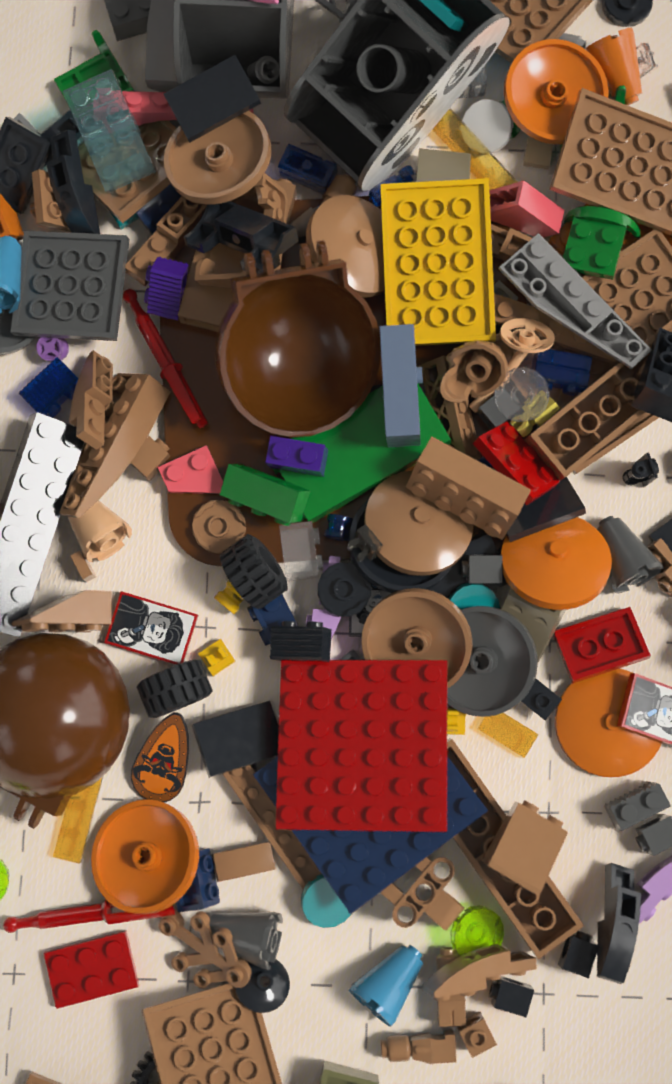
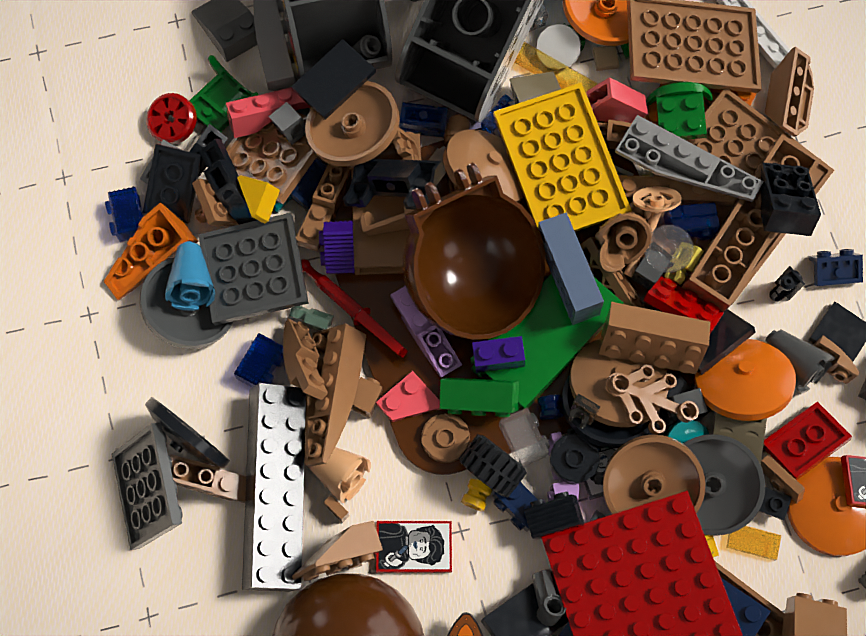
camera: 20 degrees left, 10 degrees down
(47, 351) = (246, 326): medium lavender wheel -> none
(49, 90) = (180, 109): none -> red wheel
(96, 210) = (259, 197): none -> yellow slope
(109, 131) = (250, 131): clear light blue plate -> none
(122, 357) = (317, 319): none -> sand green plate
(153, 133) = (288, 123): none -> dark grey brick
(174, 688) = (455, 591): black tyre -> none
(217, 657) = (480, 554): yellow tile -> none
(237, 427) = (427, 336): none -> lavender slope
(267, 722) = (547, 596): none -> dark grey piece
(439, 550) = (648, 398): none -> medium nougat plant
(558, 678) = (782, 479): none -> medium nougat plate

